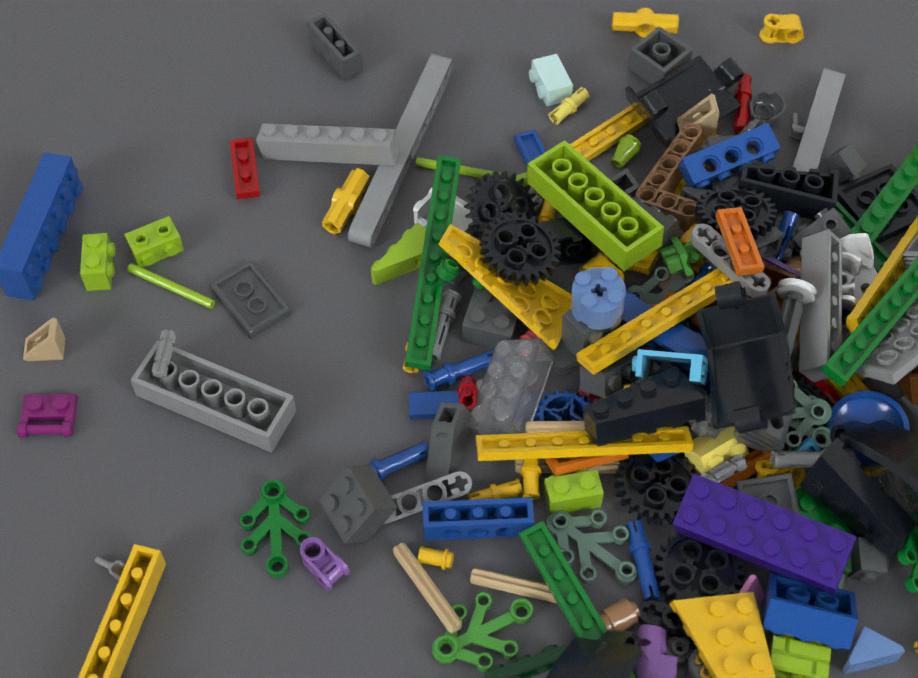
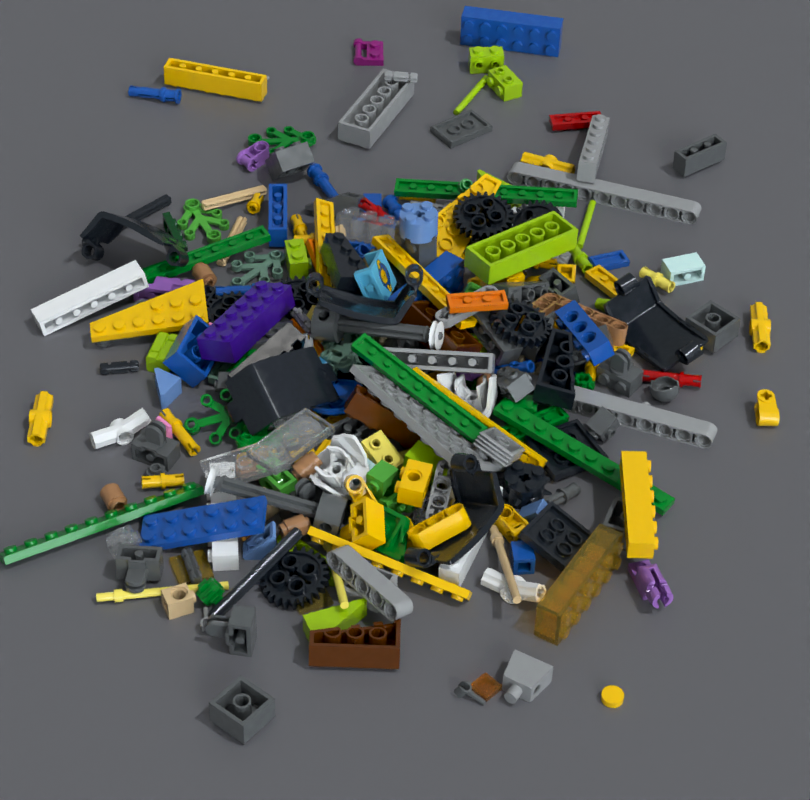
camera: 90 degrees right, 15 degrees down
(45, 343) = (421, 46): tan slope -> none
(420, 493) = (297, 194): light grey beam -> none
(703, 114) = (639, 340): tan slope -> none

